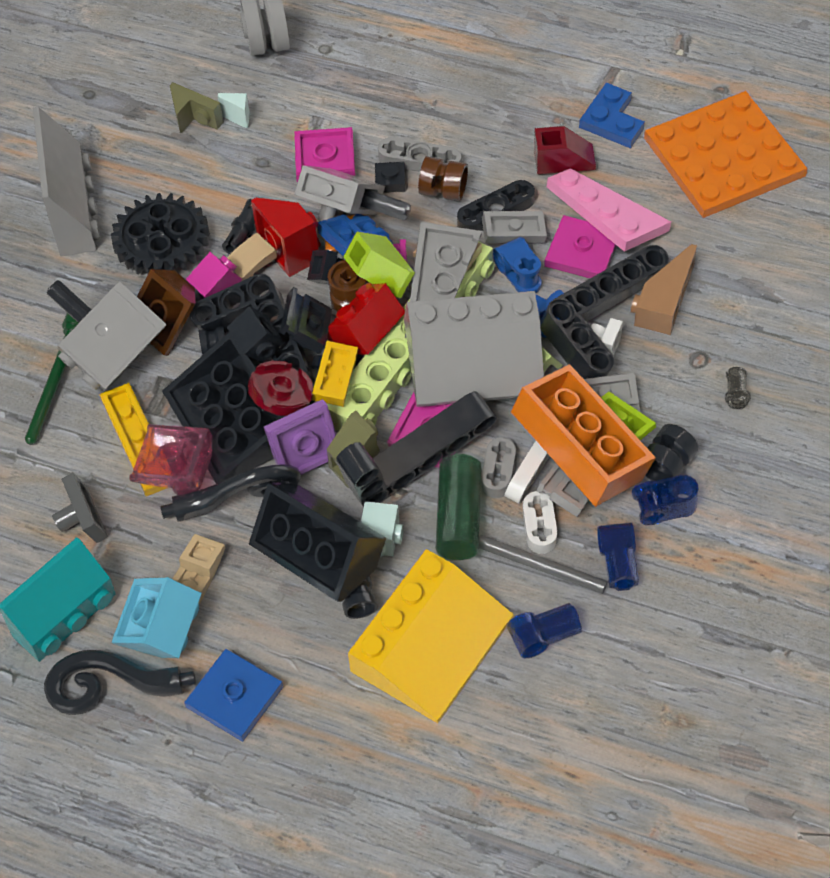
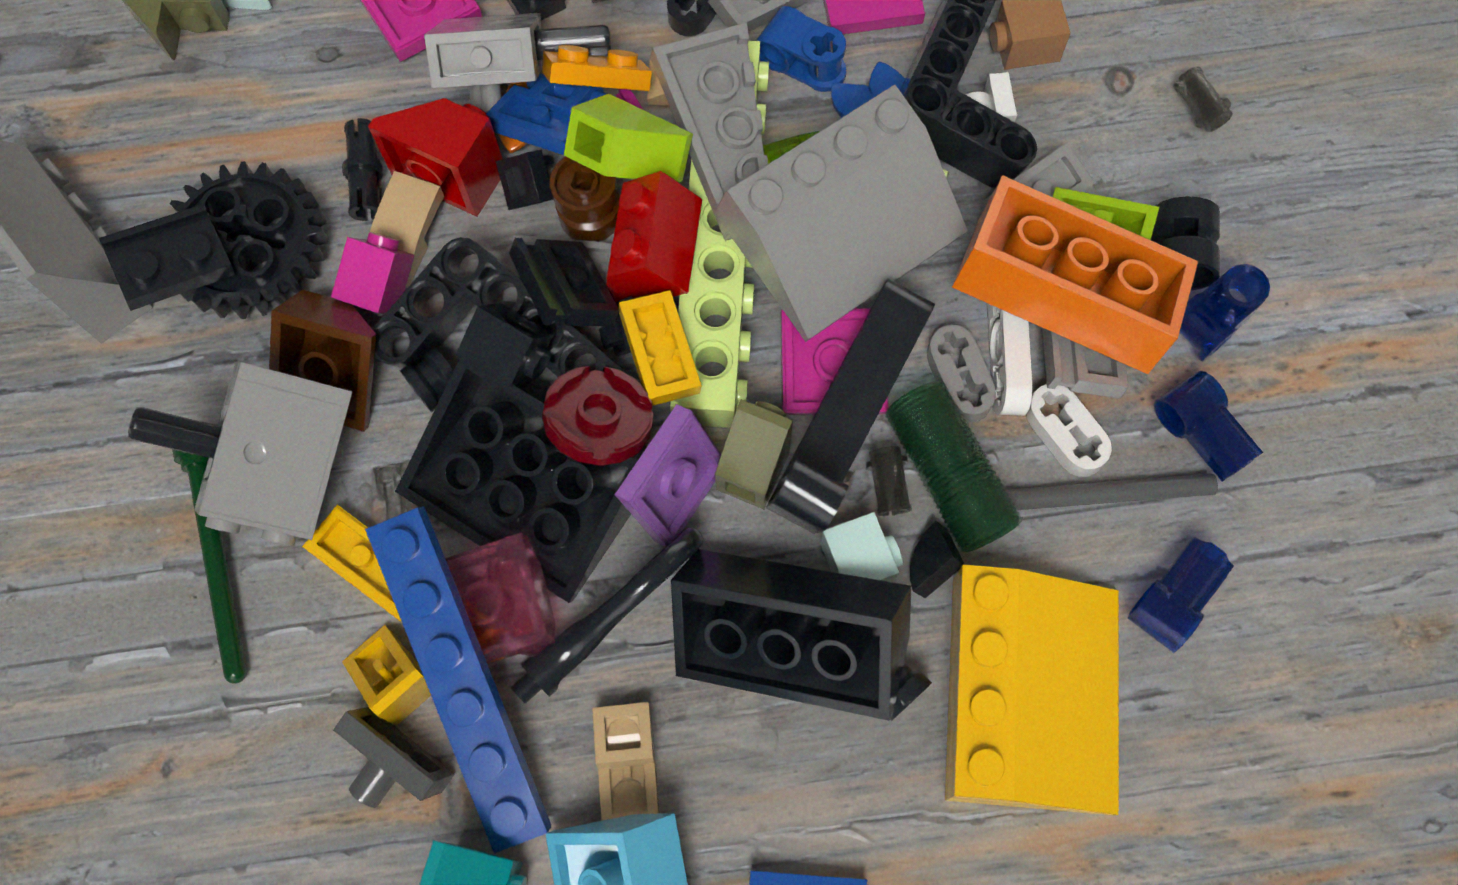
camera: 30 degrees left, 15 degrees up
(105, 476) = (387, 676): none -> yellow slope
(116, 223) = (166, 257): none -> black plate
(135, 482) = (459, 679): none -> blue plate
(379, 217) = (575, 67): none -> light orange plate
(413, 553) = (934, 560): none -> black tile
(425, 493) = (889, 480): none -> clear smoke pin

